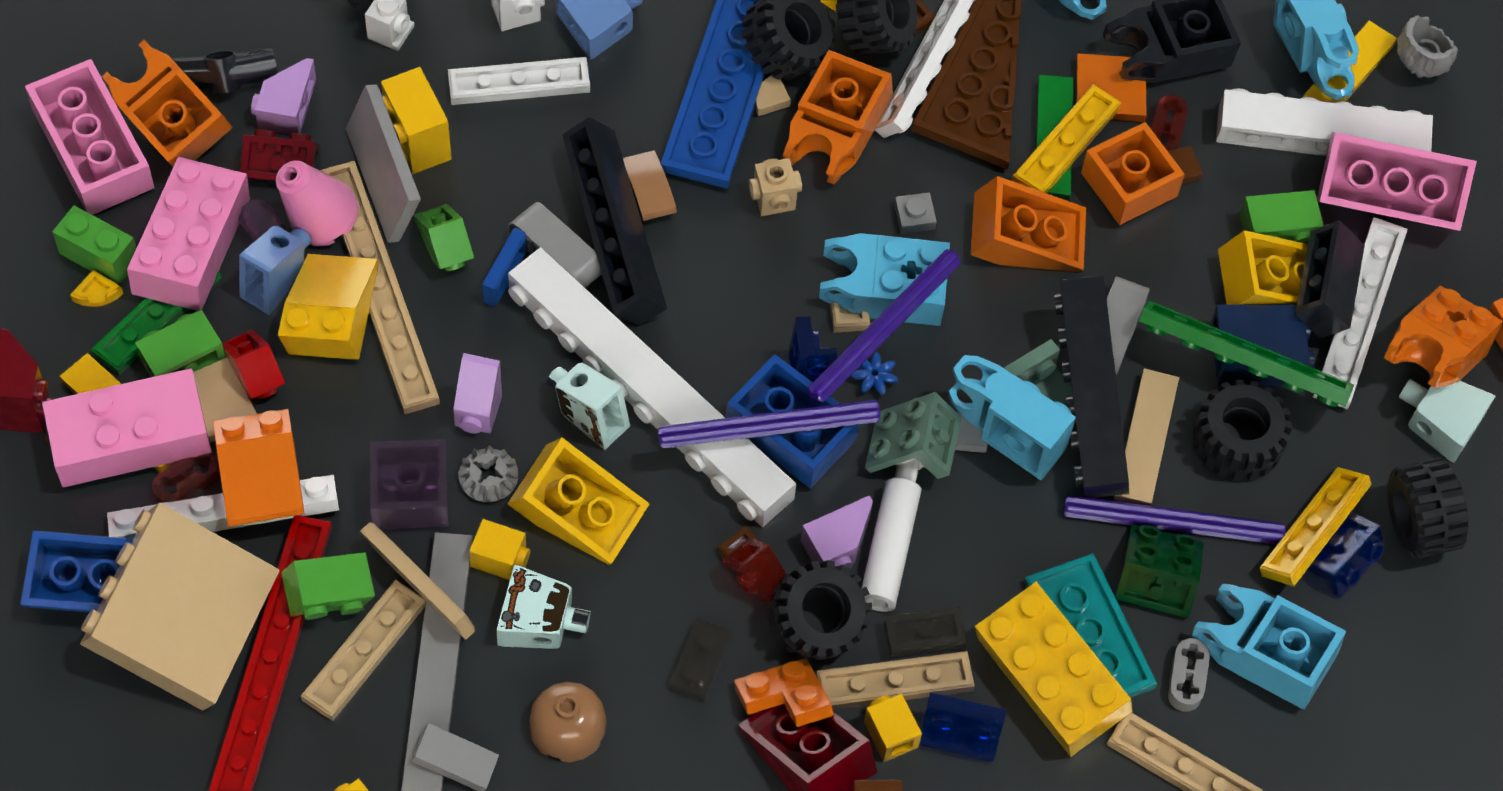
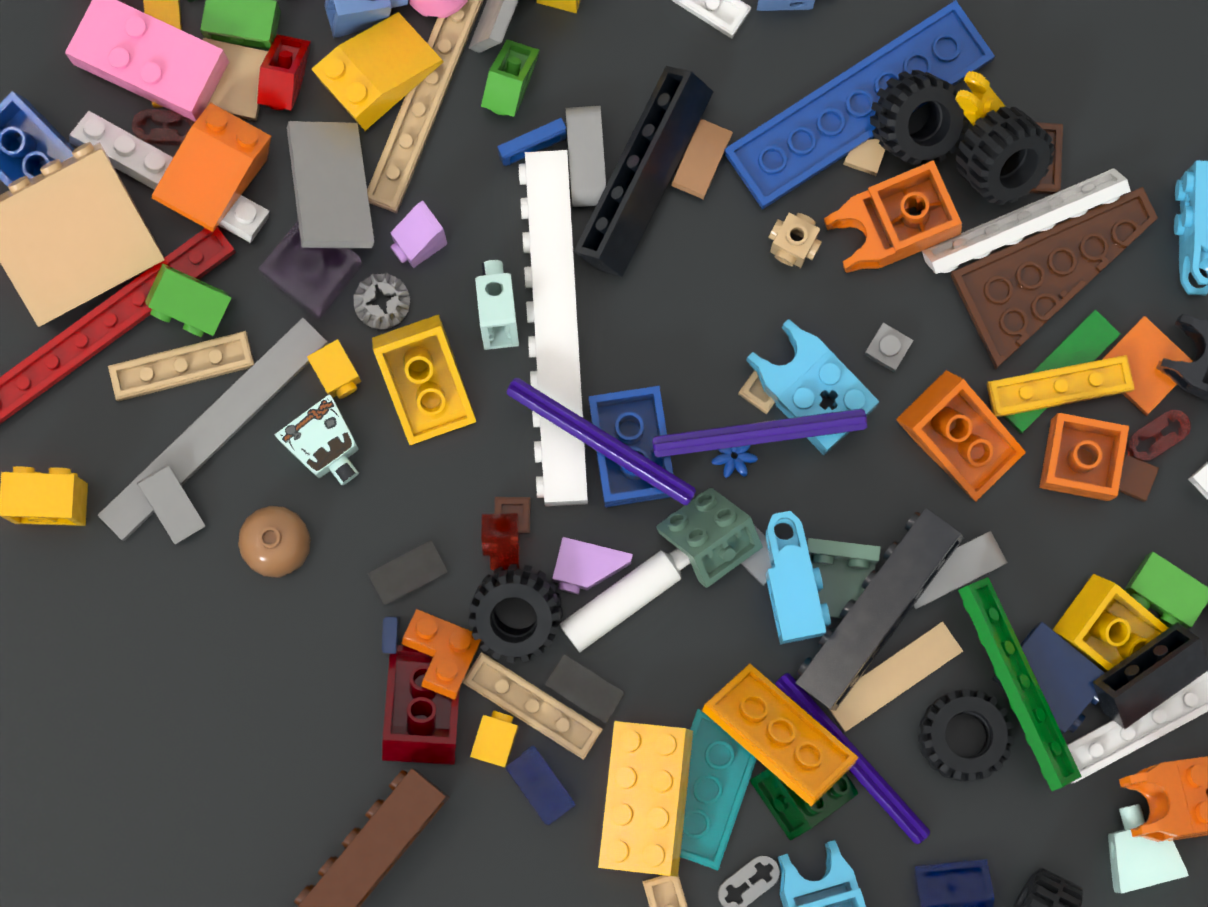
camera: 45 degrees right, 20 degrees up
(371, 409) = (330, 185): none -> light grey tile
(418, 580) = (253, 349): tan tile -> none
(729, 708) = (390, 634): none -> dark blue tile
(805, 350) = (684, 406): clear blue bracket -> none
(1108, 536) = (780, 734): none -> light orange tile
(1315, 526) = (951, 854): yellow tile -> none

